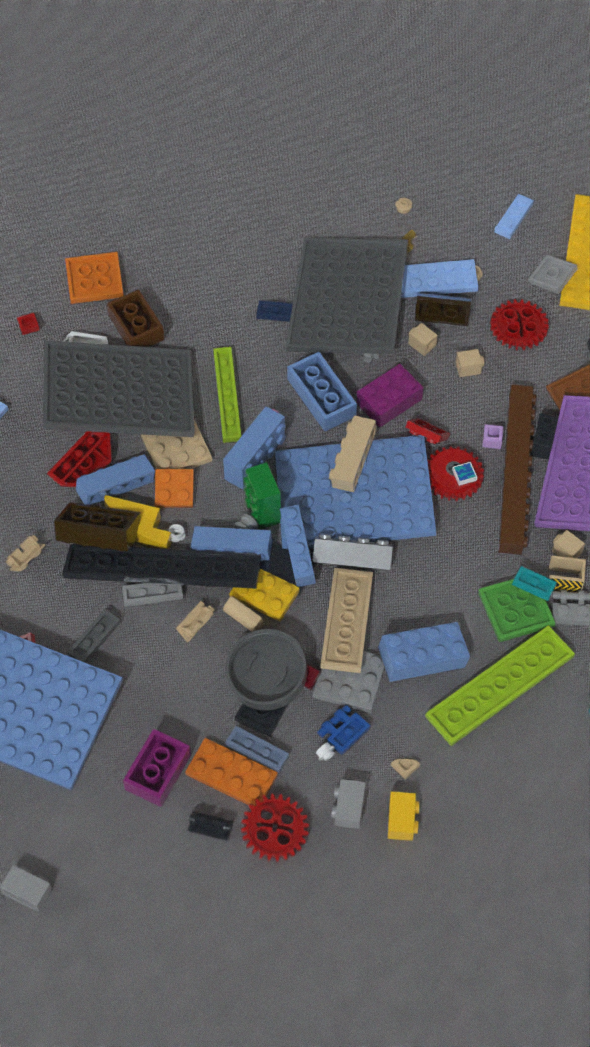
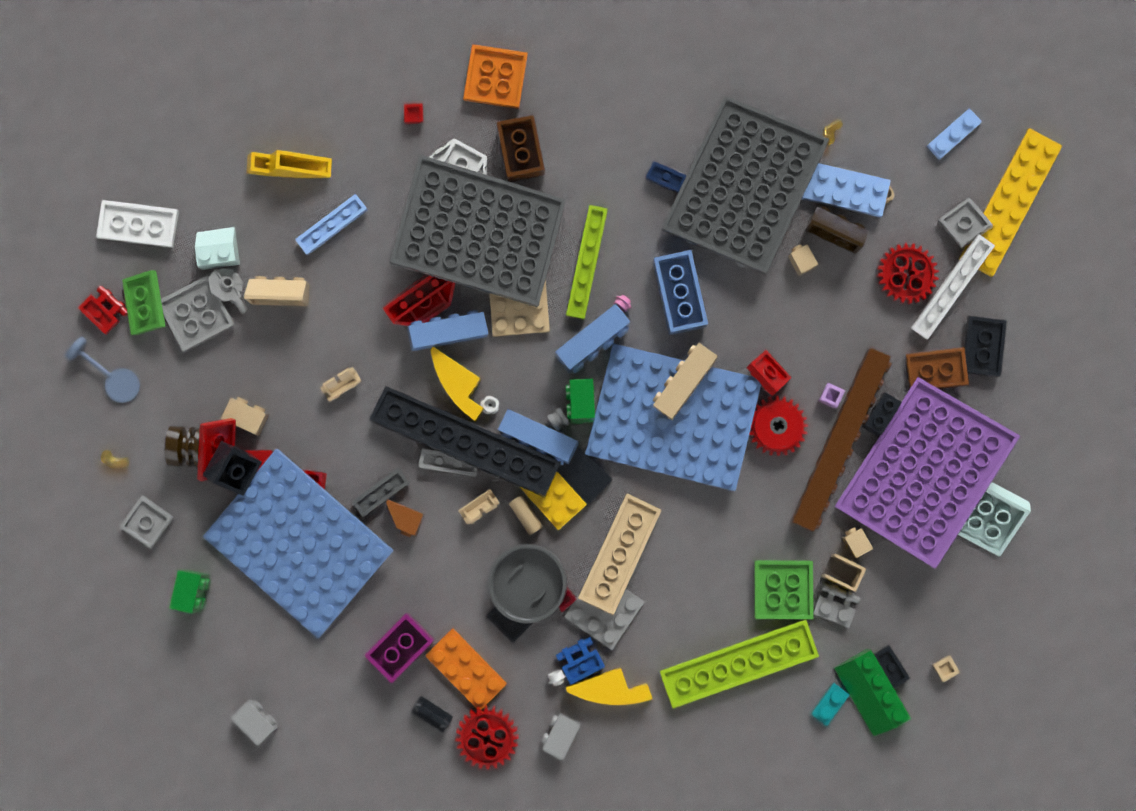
camera: 15 degrees right, 25 degrees up
(97, 526) = (415, 380): dark brown slope -> none
(125, 651) = (405, 518): none -> dark orange slope
(174, 488) = (502, 355): orange plate -> none
(257, 749) = (496, 655): sand blue plate -> none
(297, 546) = (598, 464): medium blue brick -> none
(352, 552) = (649, 485): light grey brick -> none
(383, 745) = (610, 689): none -> yellow slope
(389, 395) = (746, 317): magenta brick -> none
(402, 816) = (603, 763): yellow brick -> none
(403, 205) = (843, 88): tan plate -> none
(405, 767) = (624, 713): tan tile -> none
(423, 651) = (679, 611): medium blue brick -> none
(464, 473) = (785, 436): tile -> none
(469, 363) = (839, 303): tan brick -> none
(534, 583) = (808, 575): teal plate -> none
(563, 322) = (952, 286): none -> white plate

